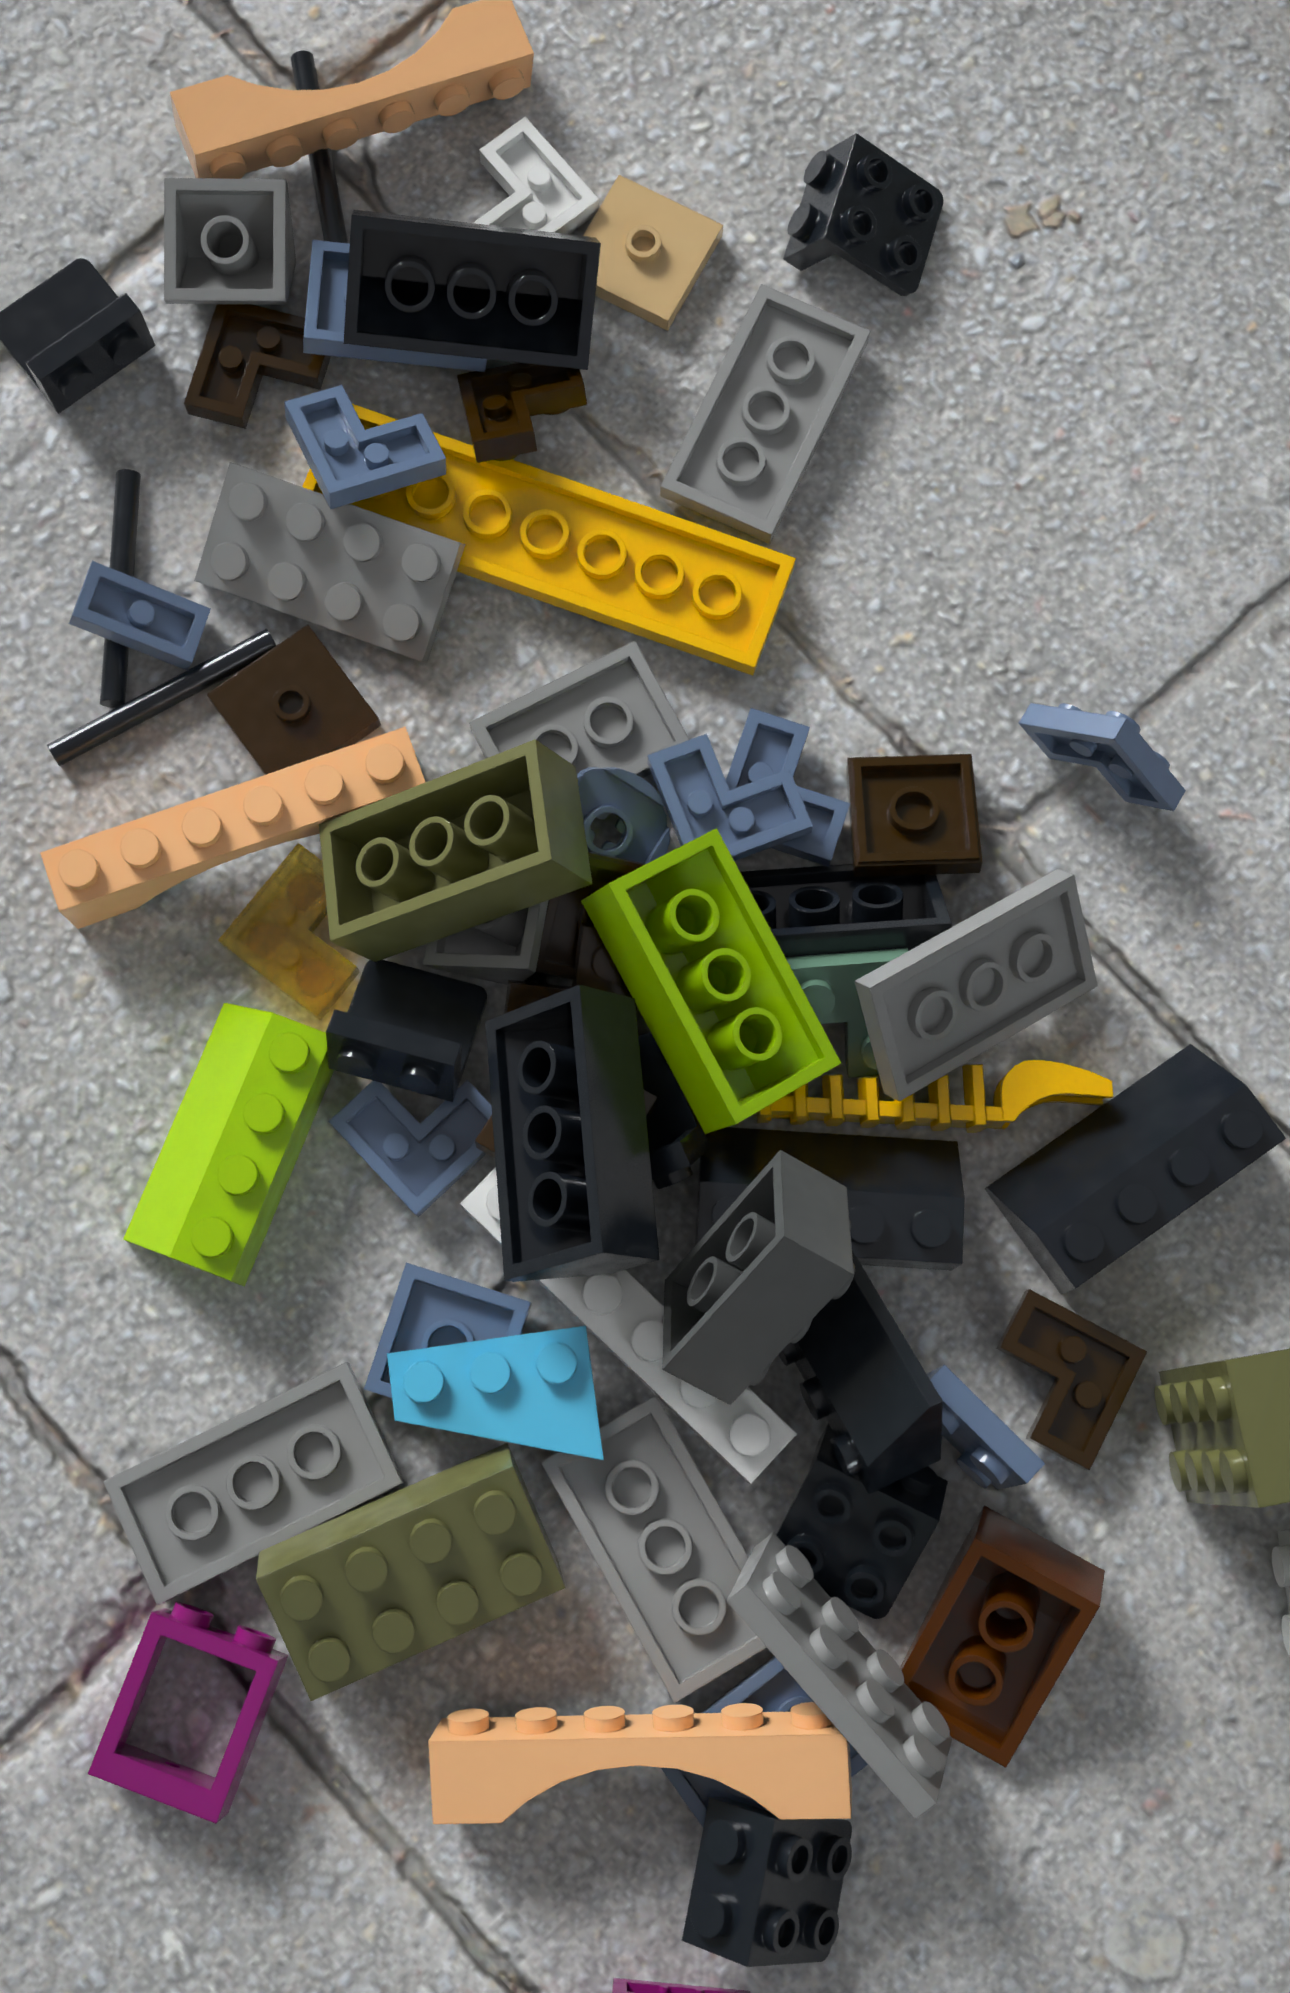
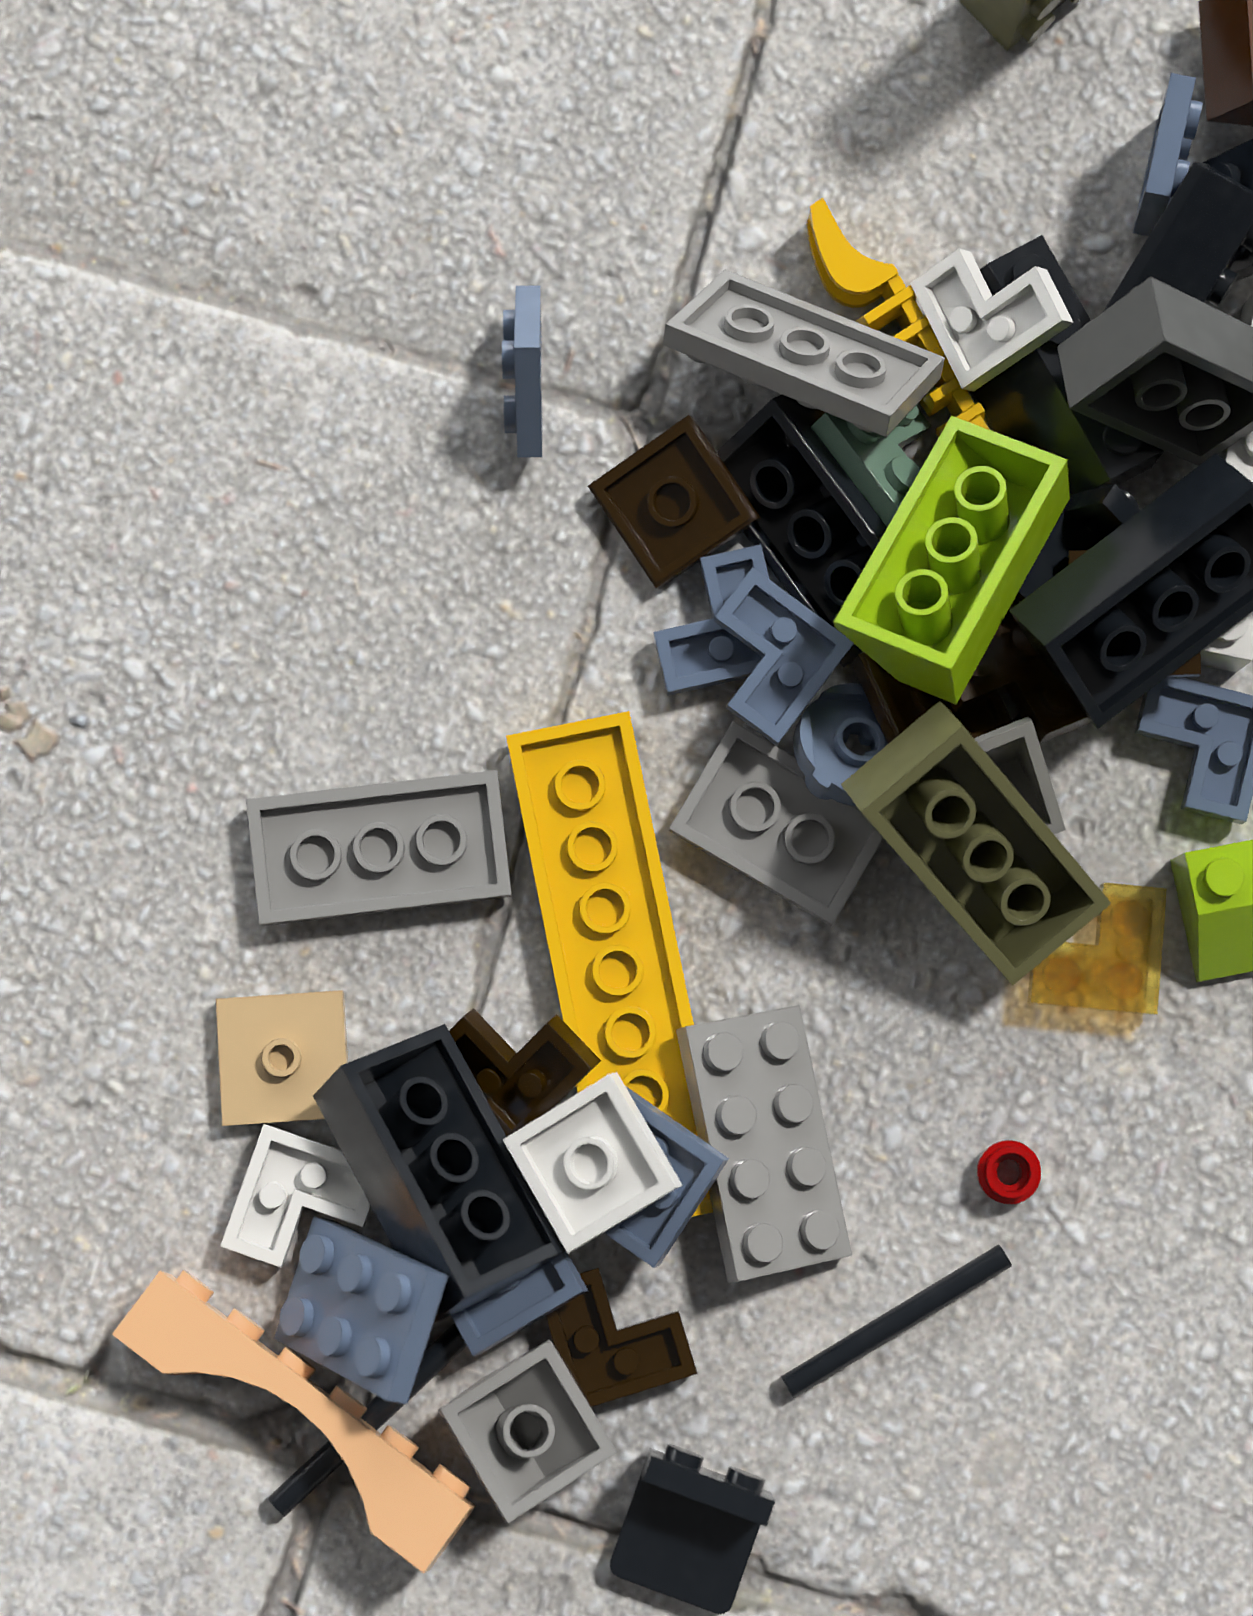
camera: 125 degrees left, 5 degrees up
(139, 615) = (920, 1275): sand blue plate -> none
(149, 855) = (1054, 1060): light nougat arch -> none
(160, 698) = (971, 1214): black bar -> none
(169, 730) = (1028, 1177): none -> red plate
(293, 704) = (910, 1091): dark brown plate -> none
(397, 397) = (592, 1162): none -> white plate
(402, 167) = (360, 1309): none -> sand blue plate
(407, 1029) = (1129, 803): black bracket -> none
(867, 213) = (131, 875): black bracket -> none
(908, 1149) = (985, 331): none -> white plate
(1089, 1374) = (1050, 99): dark brown plate -> none
(1133, 1166) = (866, 150): black slope -> none

